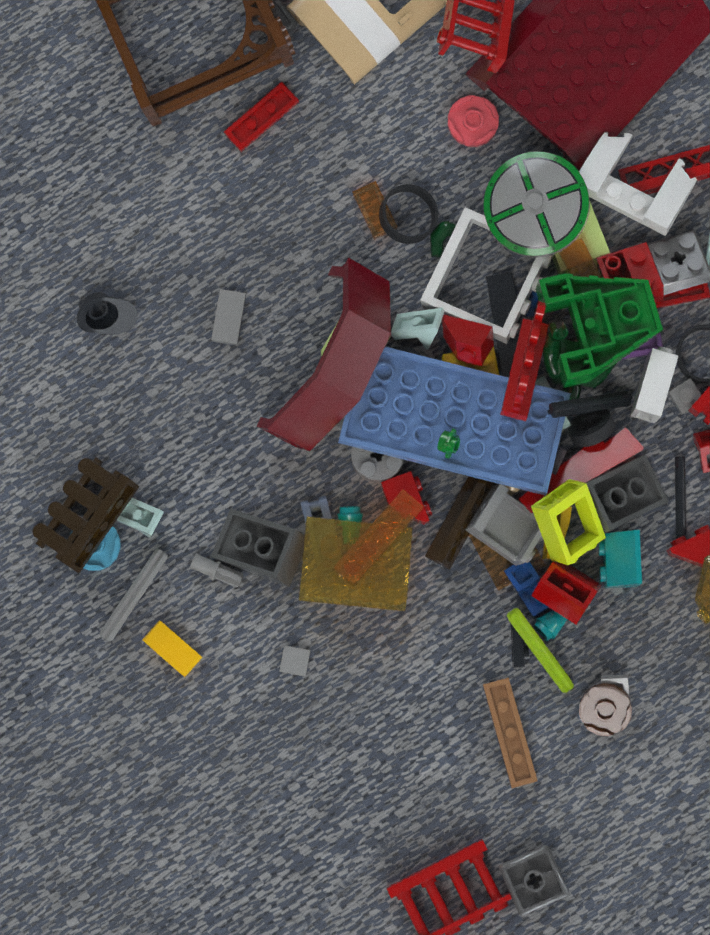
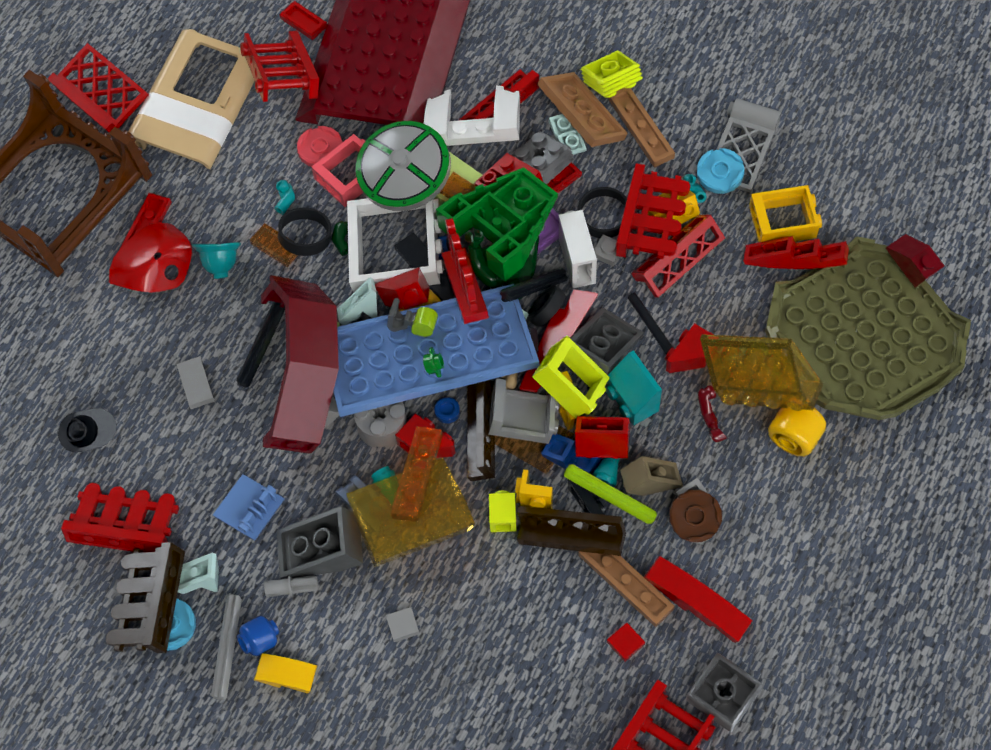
camera: 25 degrees left, 20 degrees down
(84, 418) = (117, 534): none -> red fence
(164, 602) = (257, 636): none -> blue head
(216, 472) = (249, 506): none -> medium blue hinge
(233, 155) = (139, 270): none -> red piece
(305, 313) = (260, 345): none -> black axle
(312, 194) = (217, 257): none -> teal hat
(412, 160) = (286, 194): none -> teal arm
(438, 607) = (502, 512): none -> neon yellow brick
(443, 479) = (447, 410): none -> blue tile
(456, 155) = (328, 181): none -> coral window
(462, 390) = (421, 322): none -> leg
(472, 620) = (533, 495): none -> yellow bracket
(477, 786) = (625, 642): none -> red tile
(485, 664) = (570, 532): none -> dark brown fence
(561, 786) = (697, 598): none -> red slope
(588, 650) = (650, 476): none -> dark tan slope
(676, 623) = (709, 417): none -> dark red arm

